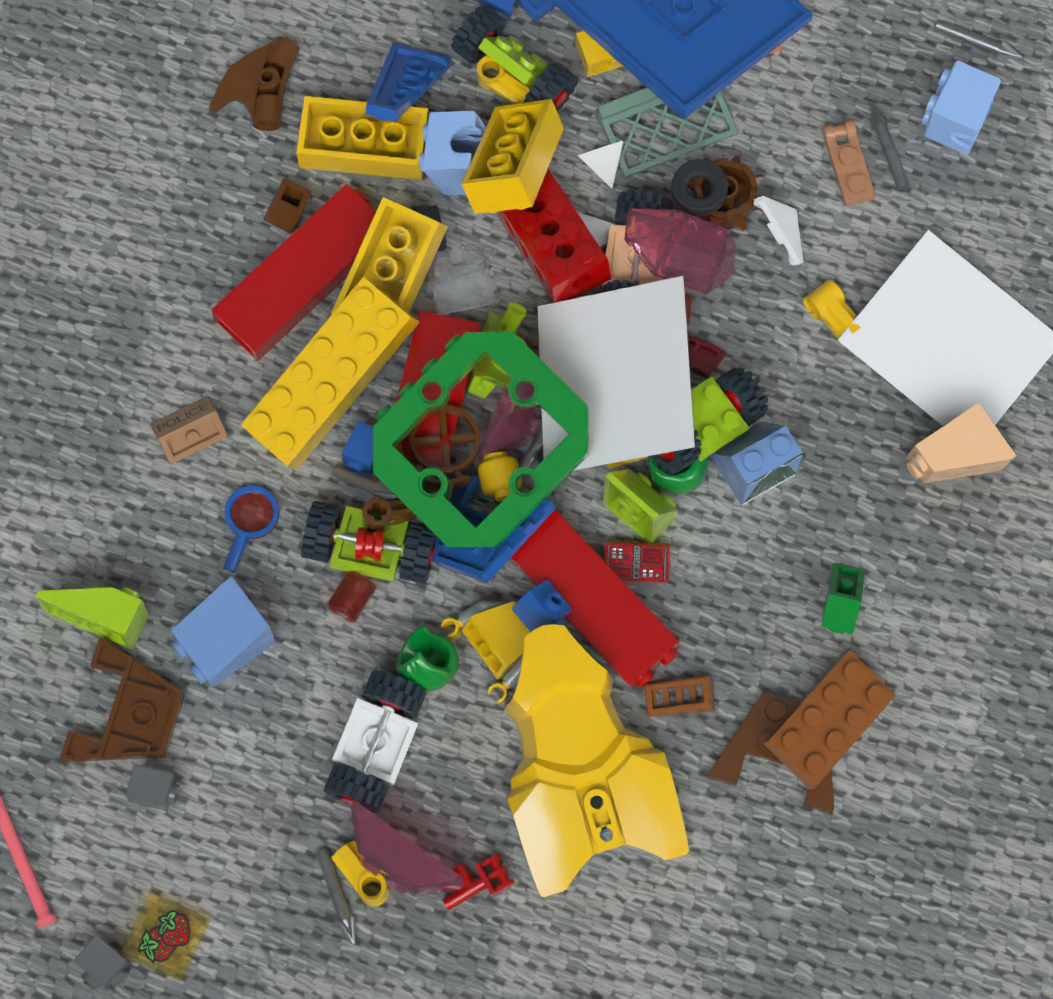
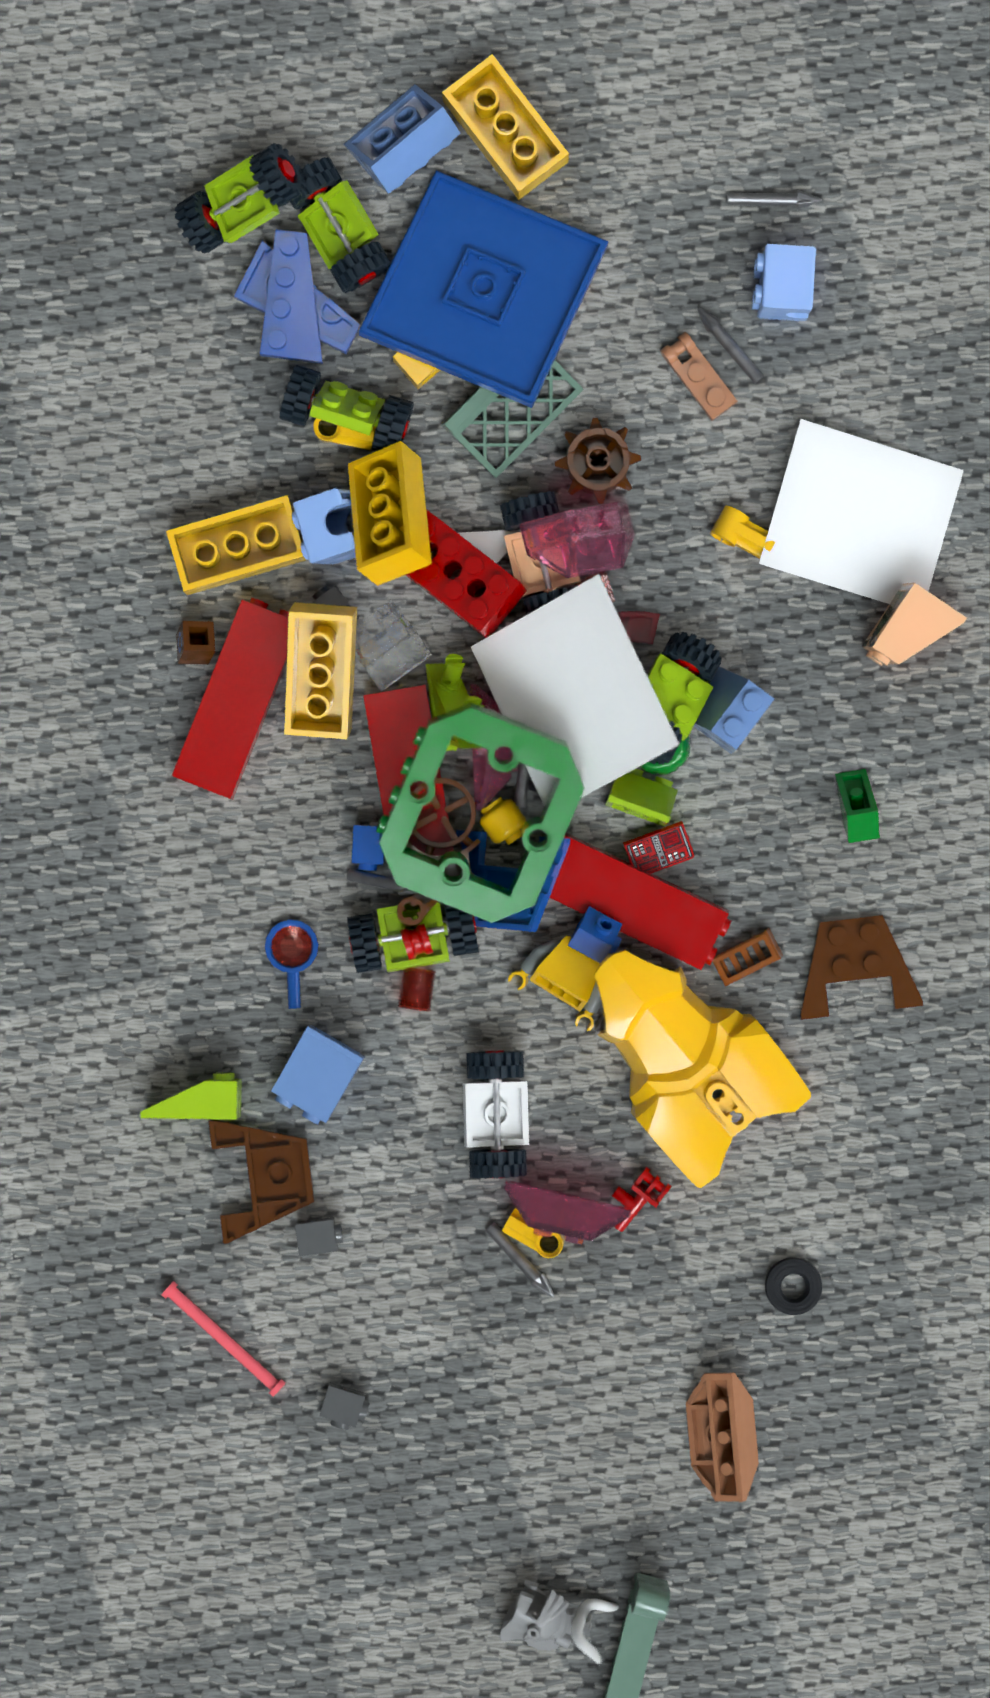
camera: 20 degrees left, 15 degrees up
(165, 937) = (386, 1358): clear yellow tile -> none
(189, 430) = (199, 893): medium nougat panel -> none
(259, 83) = (99, 531): reddish brown pin -> none
(330, 373) = (310, 794): yellow brick -> none
(404, 80) = (251, 473): blue wing -> none
(427, 660) = (511, 1022): green piece -> none
(604, 161) = (470, 470): white sticker -> none
(702, 169) = (574, 452): black tyre -> none
(783, 226) = (665, 470): white tile -> none
(829, 719) = (889, 925): dark orange plate -> none

